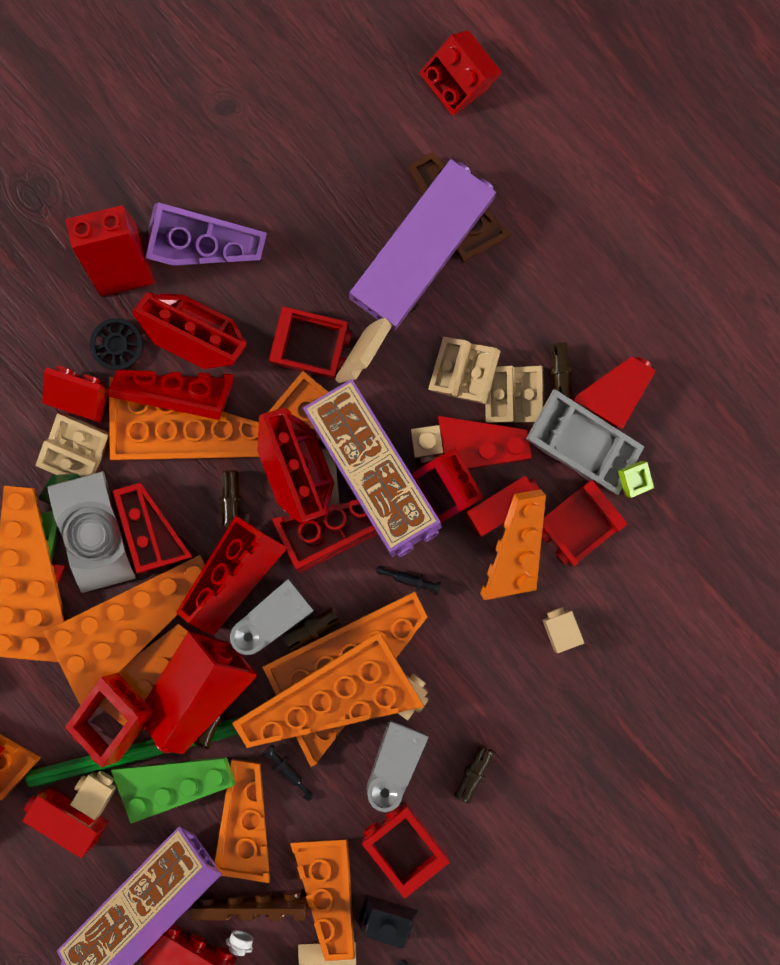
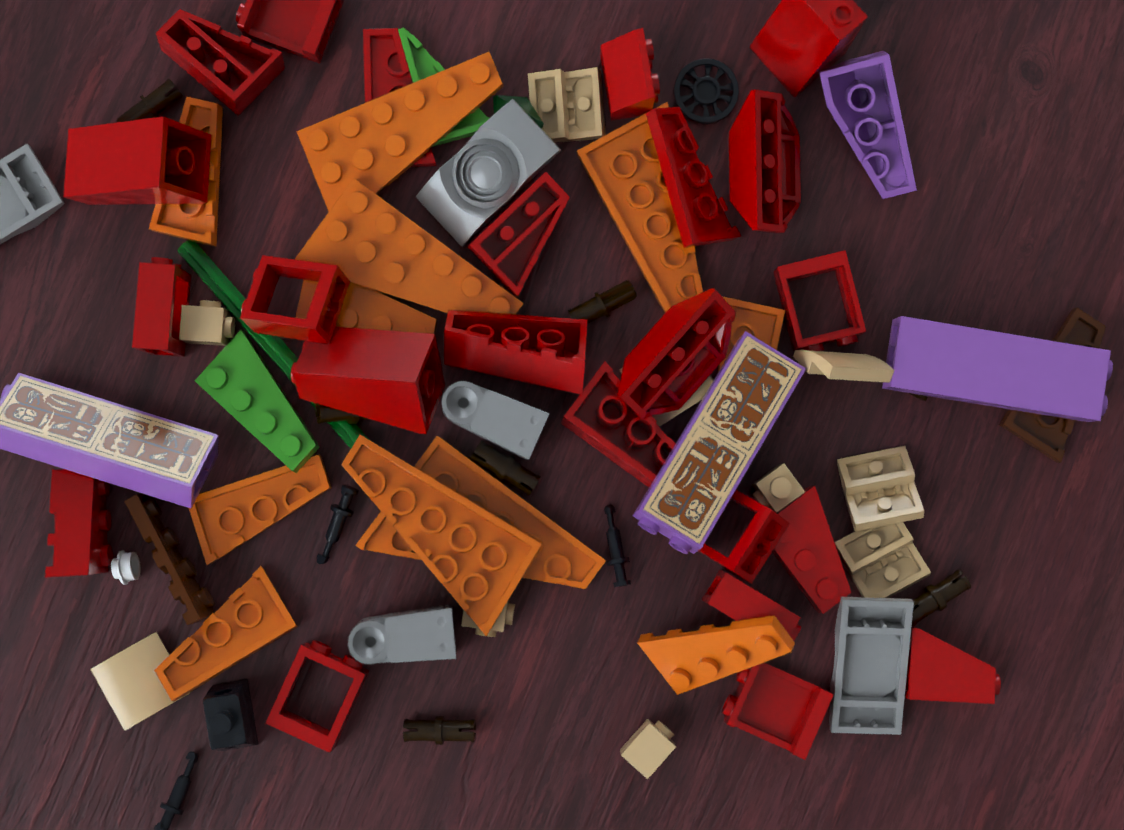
camera: 65 degrees right, 0 degrees up
(636, 479) = (859, 743): lime tile -> none

